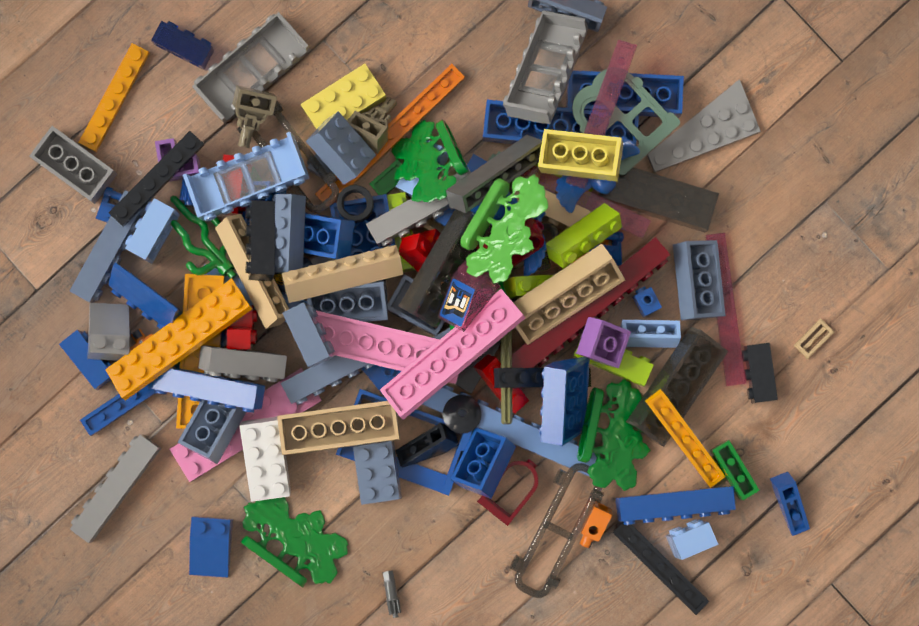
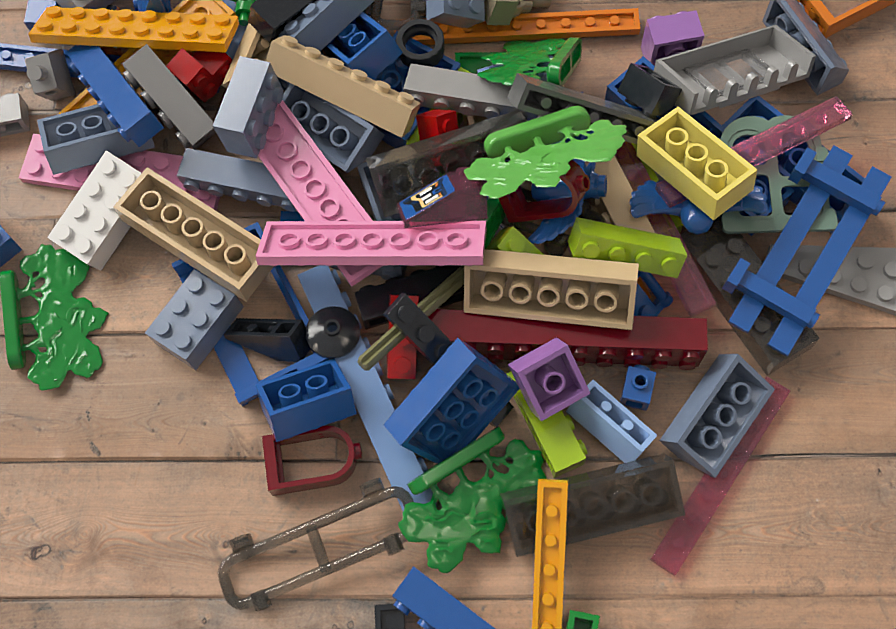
camera: 50 degrees right, 15 degrees down
(149, 409) = (50, 75): none -> light grey torso
(391, 594) = (87, 457): dark grey piece -> none
(492, 72) = (671, 35): none -> medium lavender brick
(515, 126) = (649, 91): none -> black brick
(599, 517) = (374, 572): orange torso -> none
(668, 194) = (762, 288): none -> blue fence
(759, 373) = (702, 576): black brick -> none
(808, 333) = (776, 596): tan tile -> none

